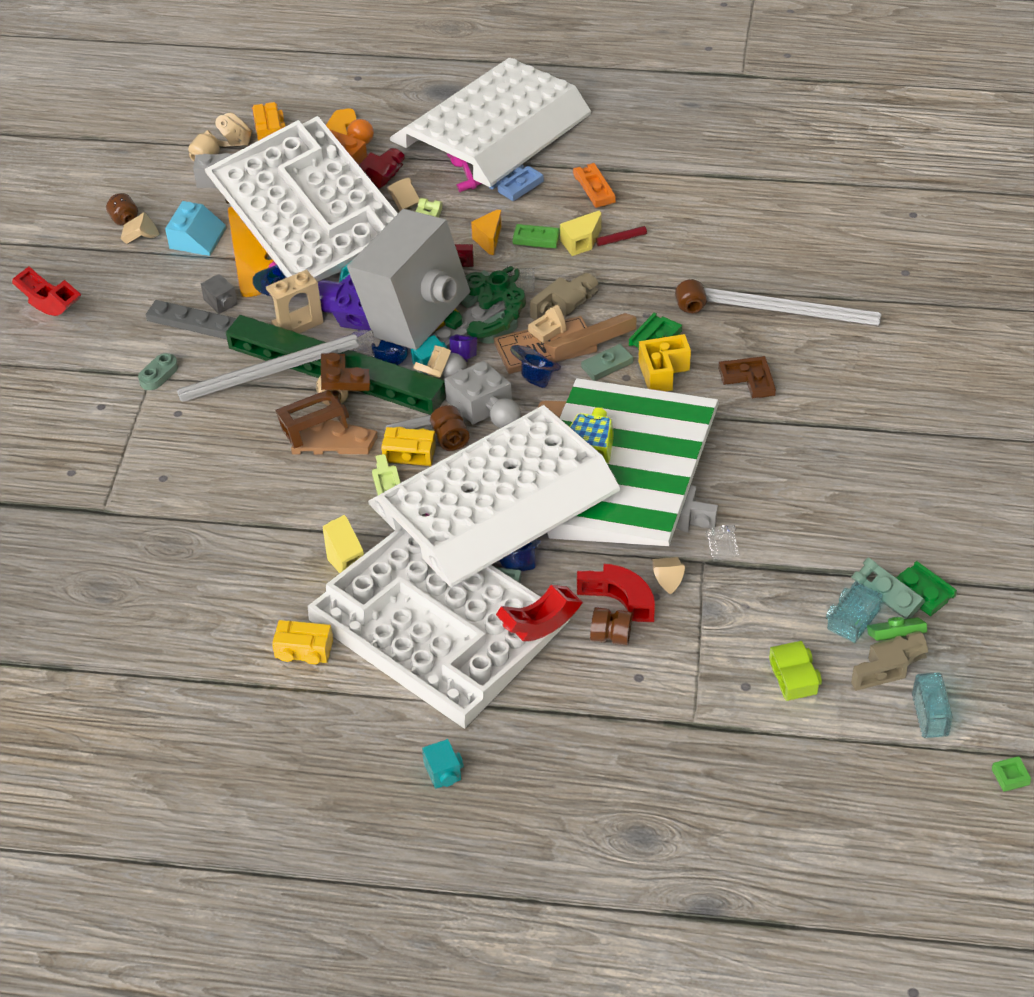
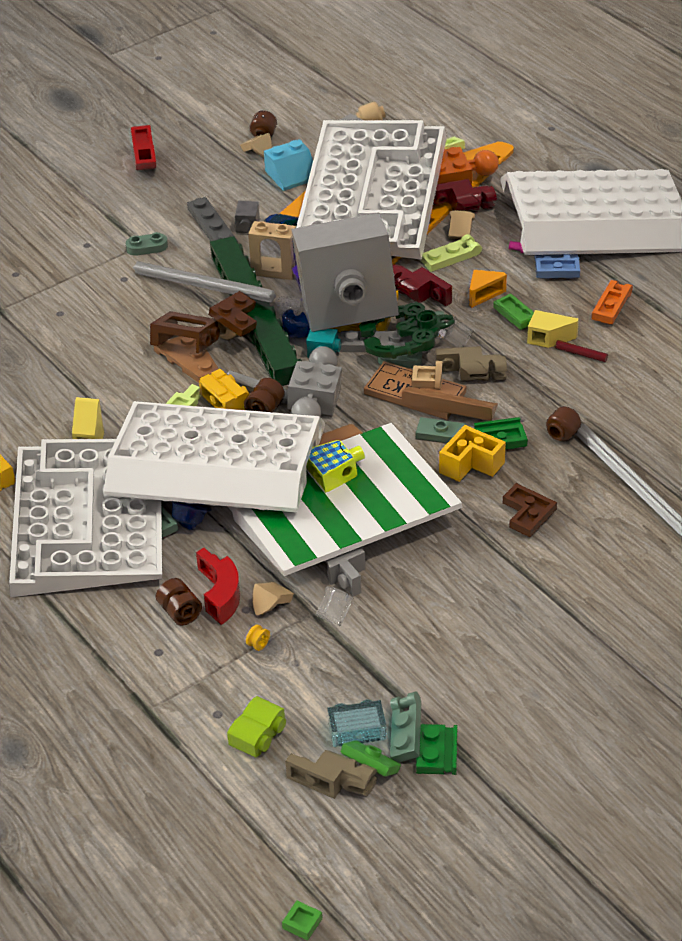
camera: 45 degrees right, 5 degrees down
(232, 128) = (395, 110): tan helmet -> none
(267, 119) = (441, 116): light orange brick -> none
(436, 363) = (304, 352): tan tile -> none
(463, 345) = (350, 352): dark purple plate -> none
(534, 366) = (380, 394): clear blue piece -> none
(542, 616) = (128, 556): red arch -> none
(701, 607) = (257, 637): none -> yellow bush
(932, 705) = (313, 826): clear light blue brick -> none

